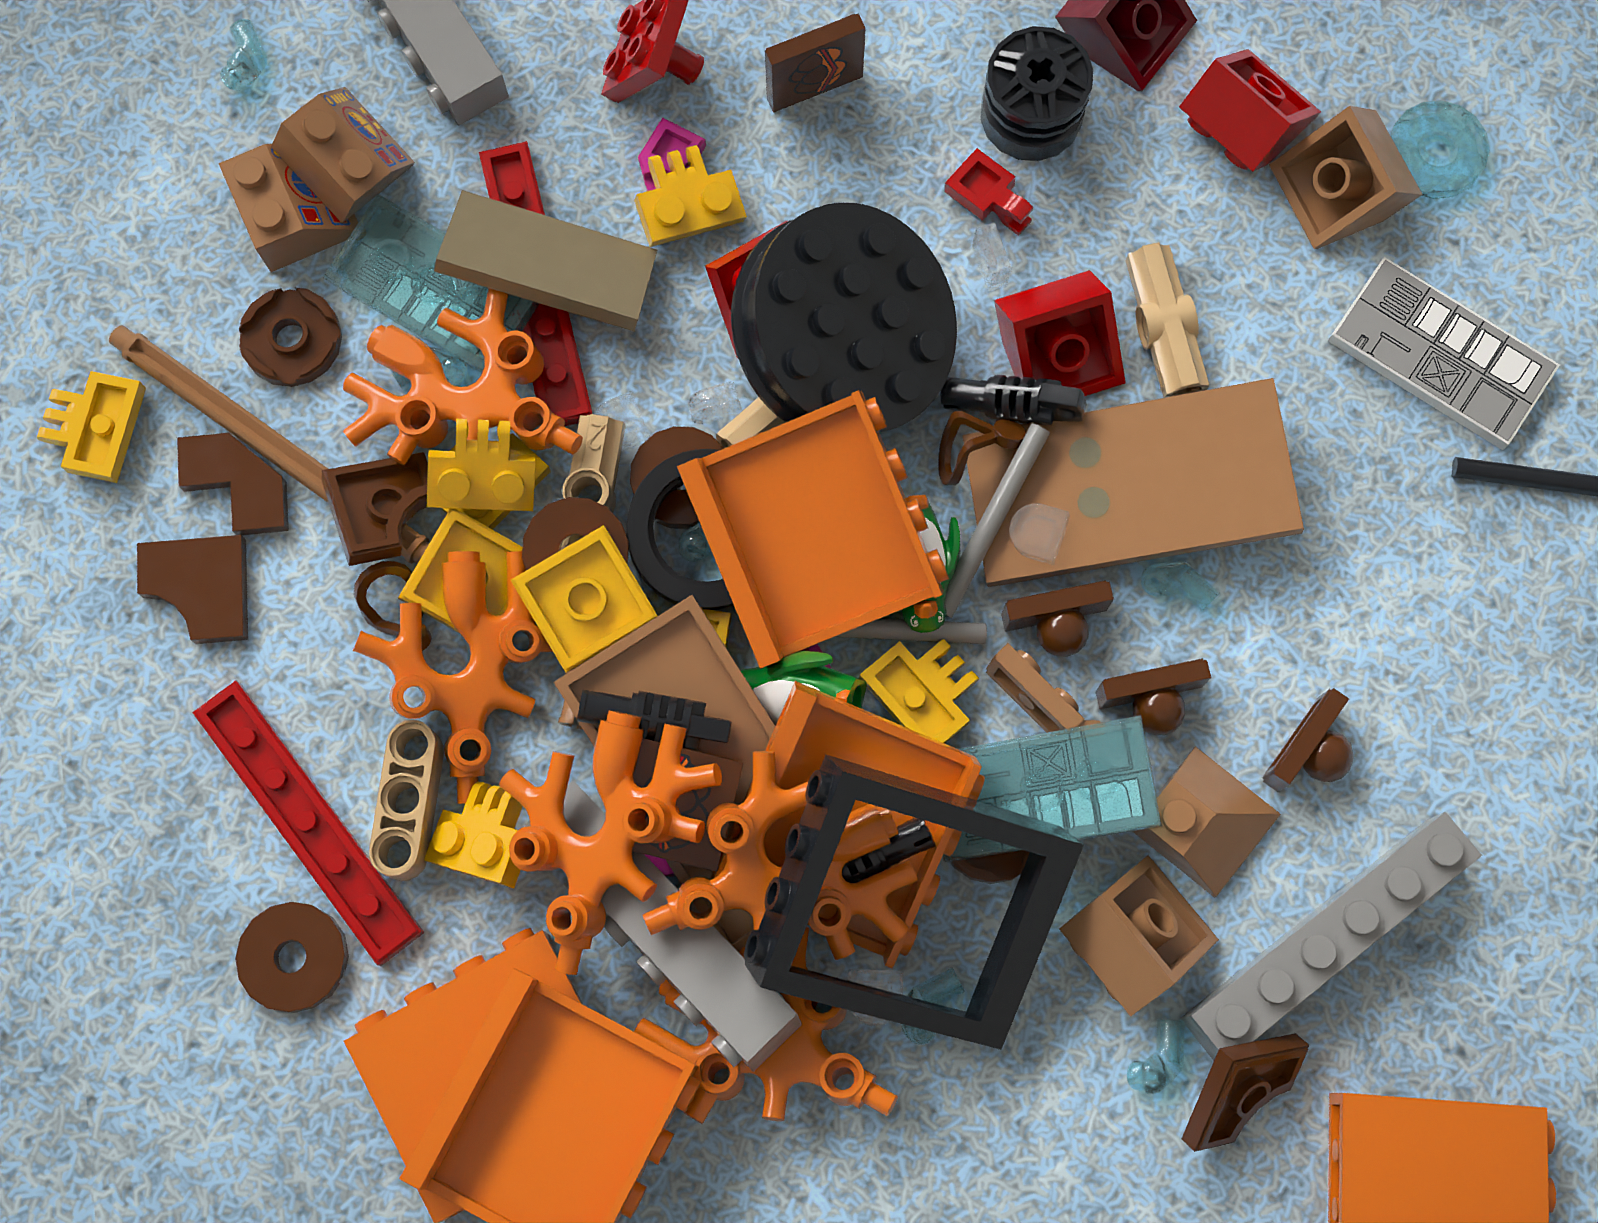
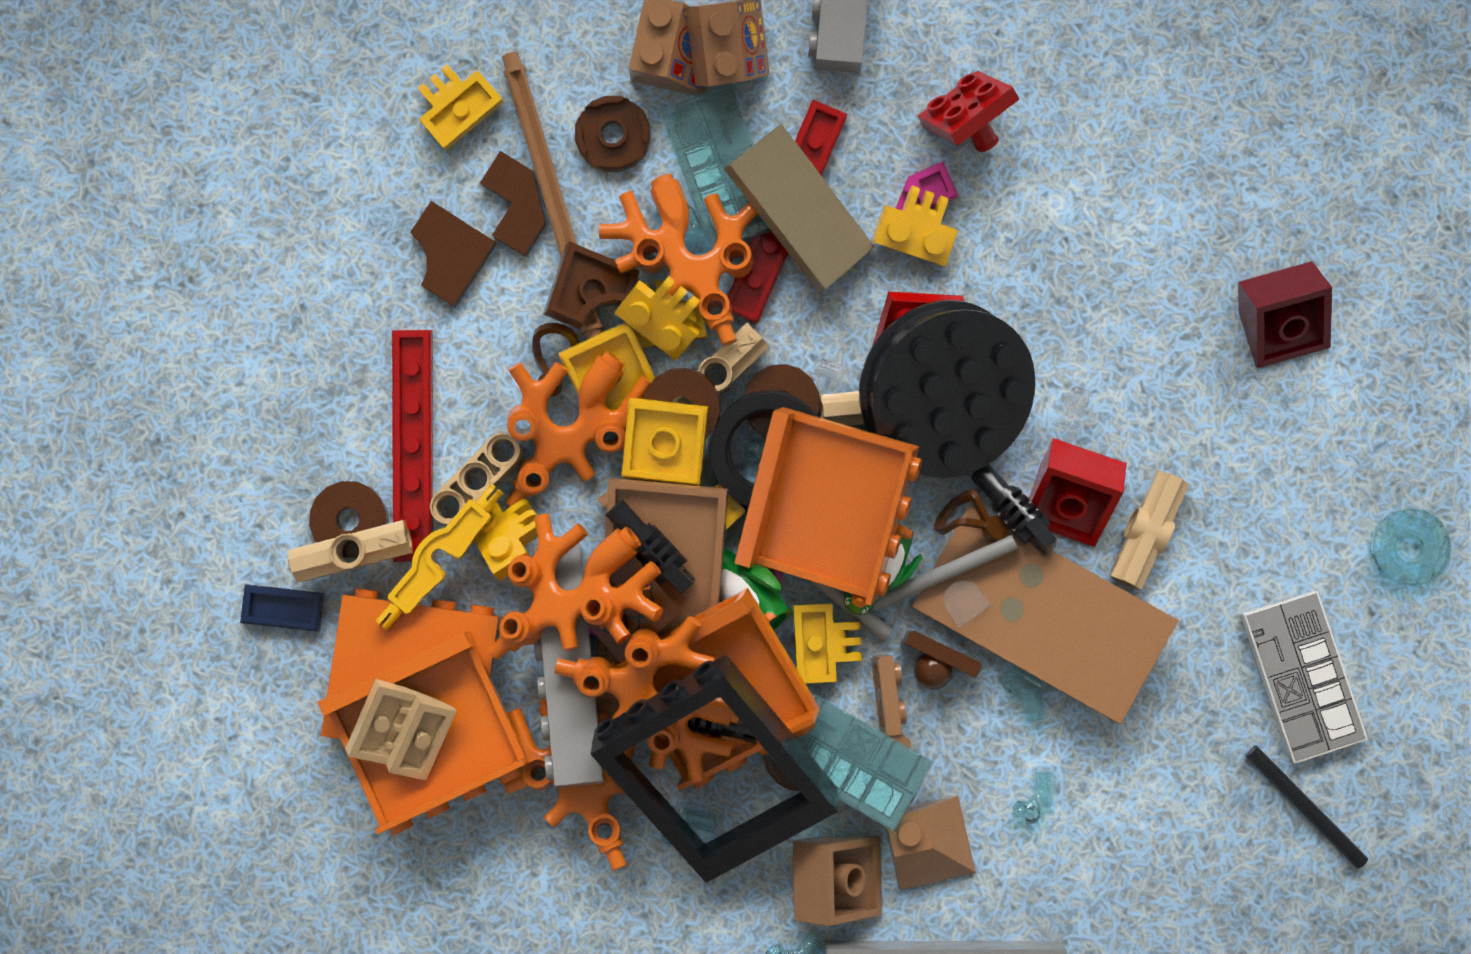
camera: 35 degrees right, 10 degrees up
(285, 1116) = (282, 608): none -> dark blue tile
(293, 1012) = (327, 556): none -> tan piece
(423, 942) = (425, 572): none -> yellow piece
(522, 1138) = (400, 729): none -> tan slope
(815, 62) = (1062, 201): reddish brown tile -> none
(986, 187) = (1105, 358): red plate -> none
(1036, 93) = (1180, 347): black wheel -> none
(1155, 693) = (955, 754): reddish brown tile -> none
(1247, 109) = (1312, 433): red slope -> none
(1286, 685) = (1039, 803): none -> clear light blue arm
(1319, 751) = (1025, 850): reddish brown tile -> none
(1345, 177) = (1335, 523): medium nougat slope -> none

